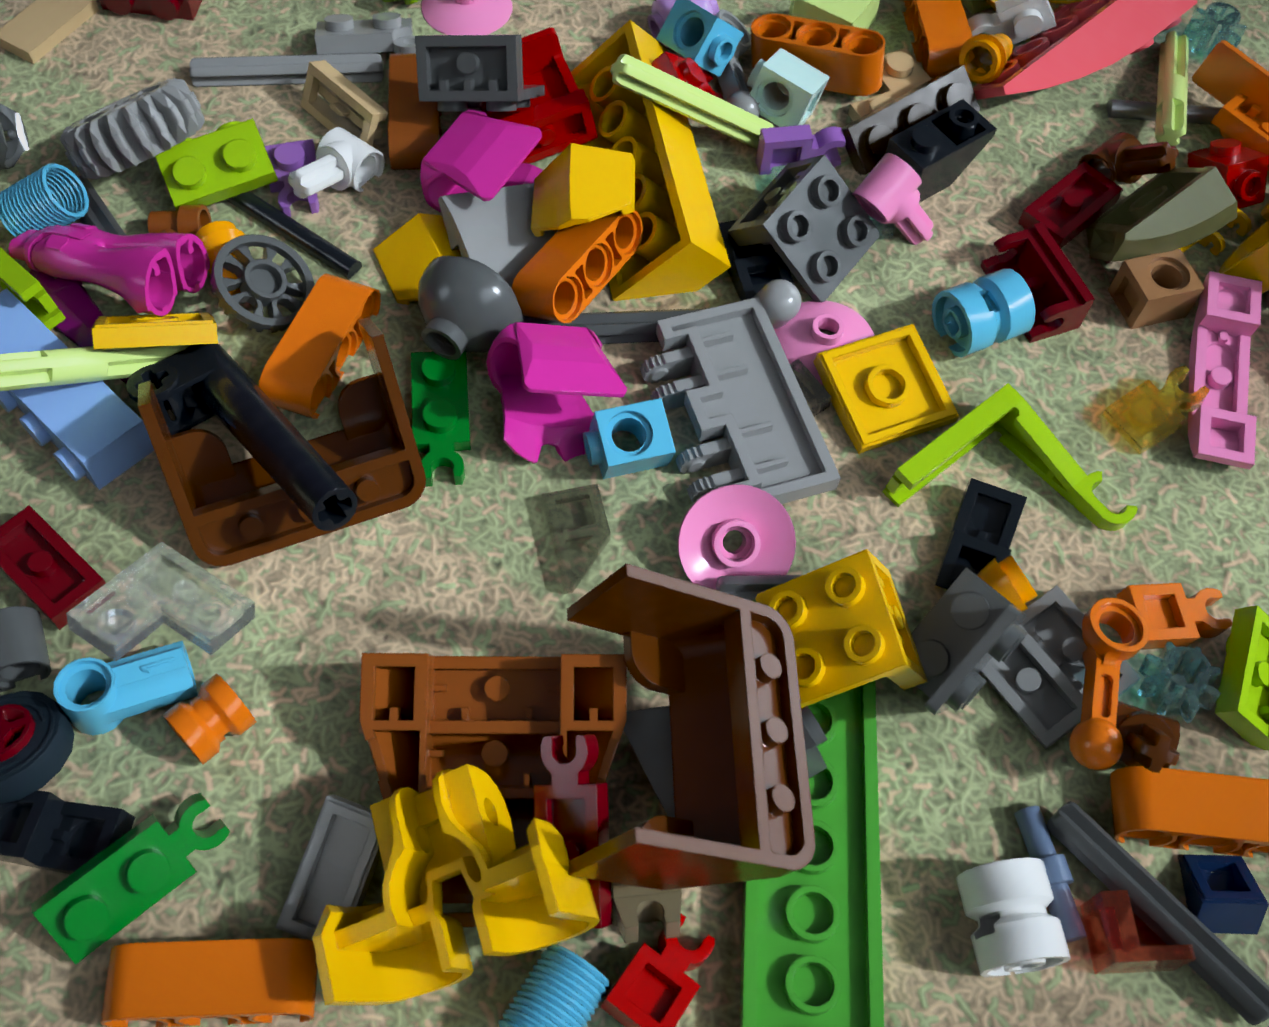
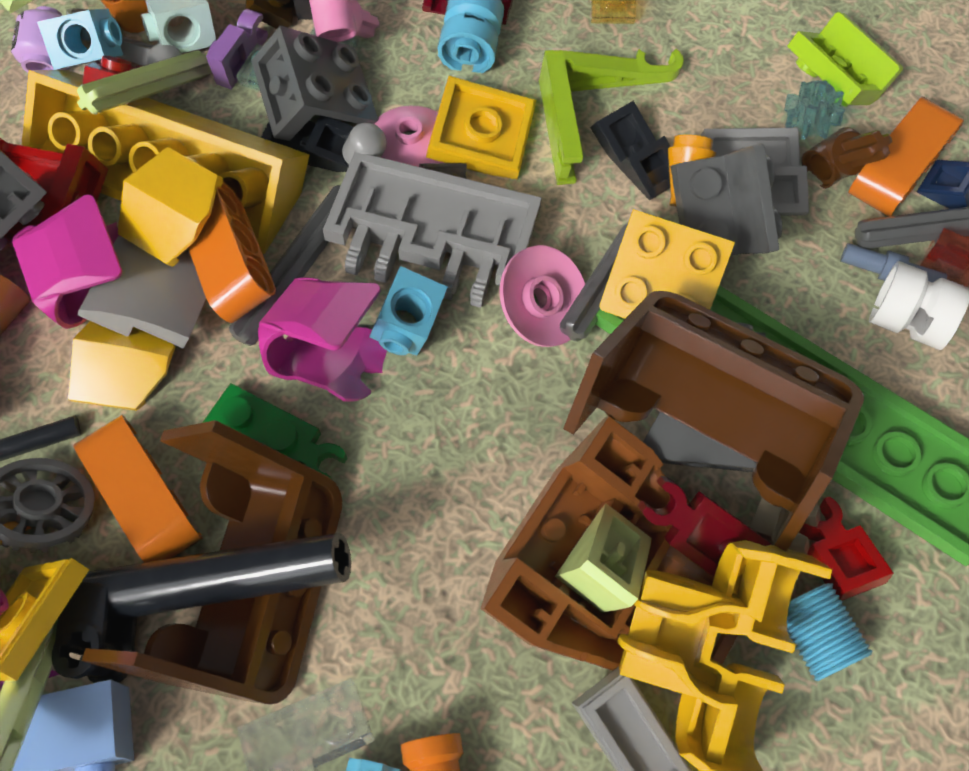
camera: 50 degrees left, 5 degrees up
(464, 306) = (202, 355): dark grey piece -> none
(488, 736) = (607, 562): none -> yellowish green slope
(576, 531) = (450, 399): clear smoke tile -> none
(1096, 739) = (833, 177): orange piece -> none
(1173, 615) = (762, 85): orange plate -> none

